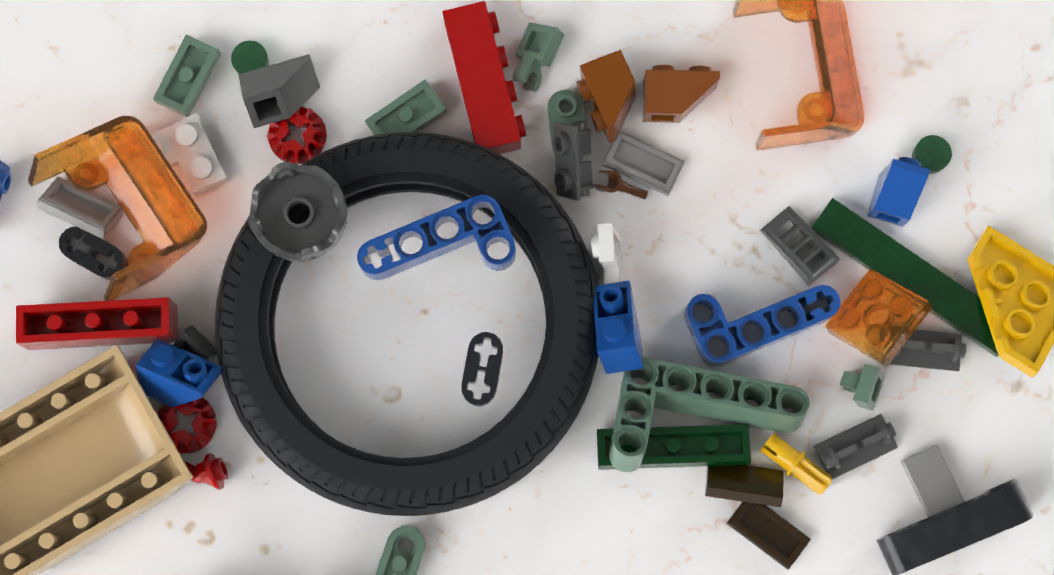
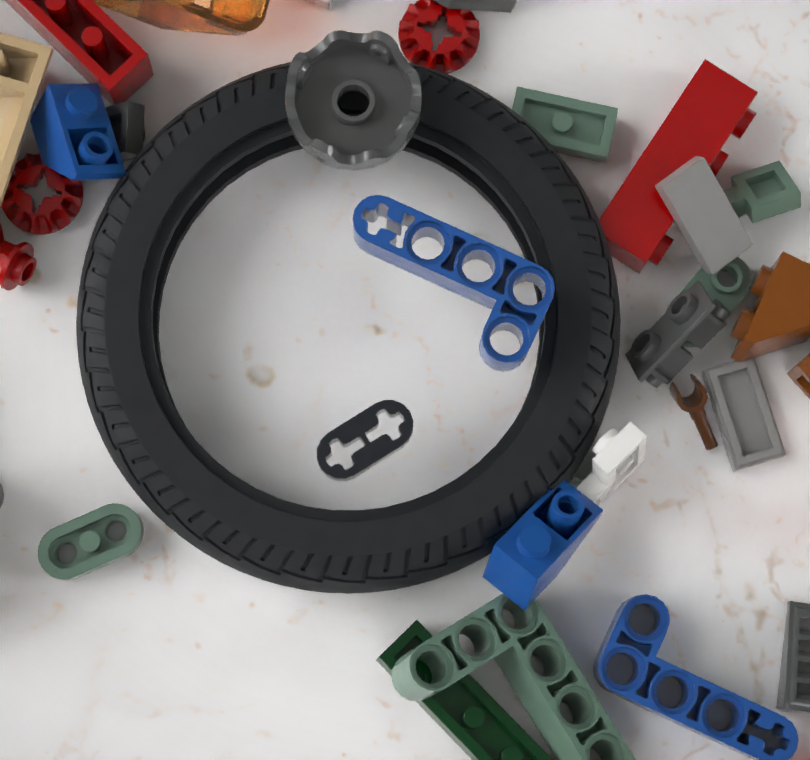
camera: 40 degrees right, 0 degrees up
(523, 87) = (704, 215): none -> light grey tile

